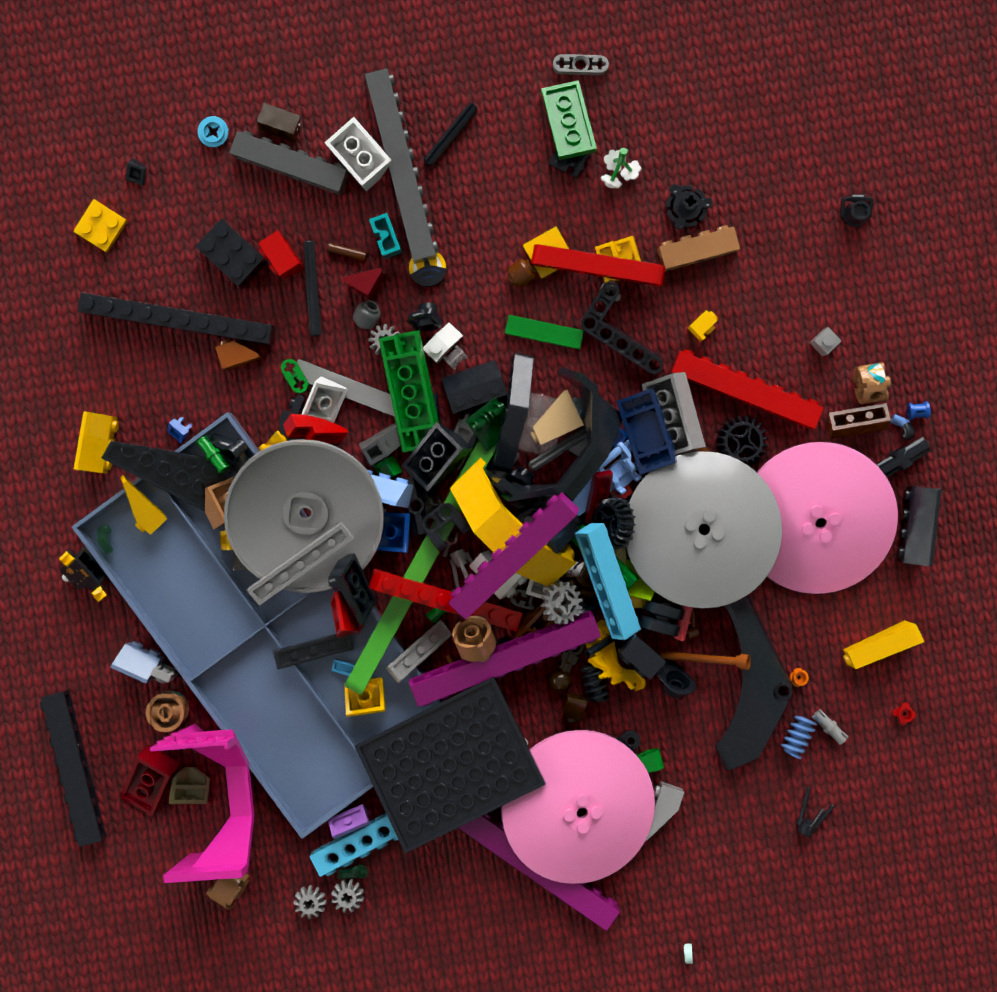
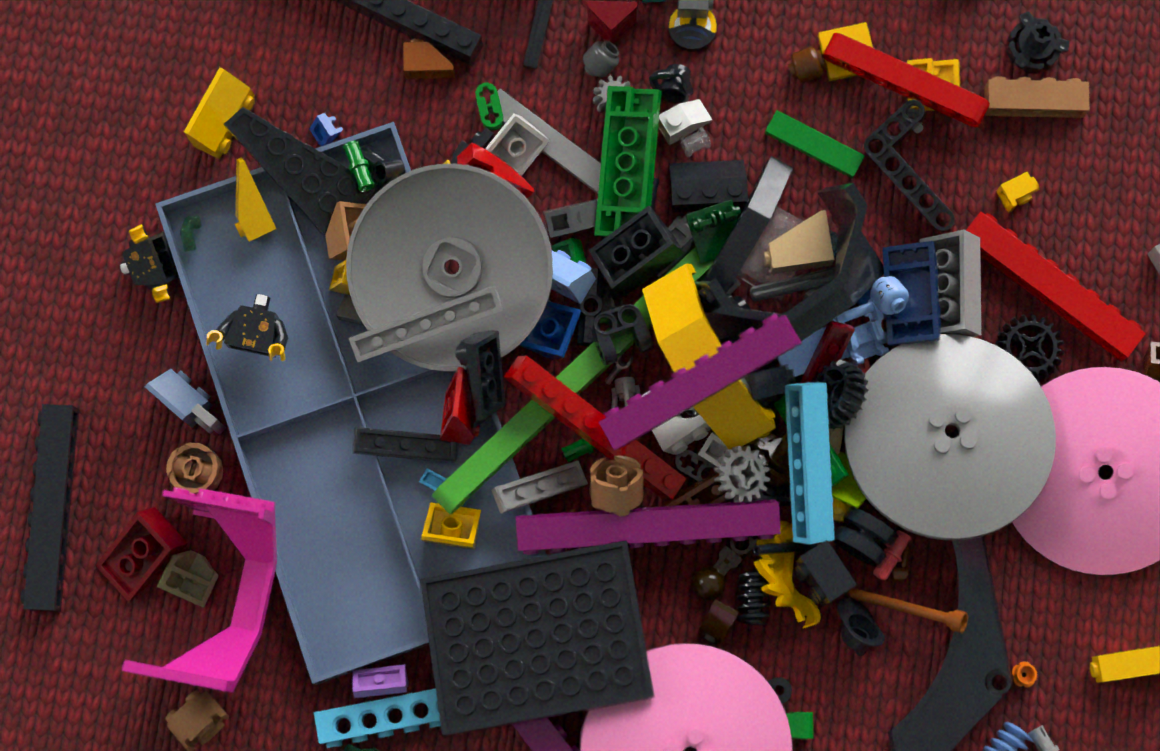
camera: 20 degrees right, 10 degrees down
(175, 603) = (252, 330): none -> black torso
(631, 439) = (889, 295): none -> light blue head

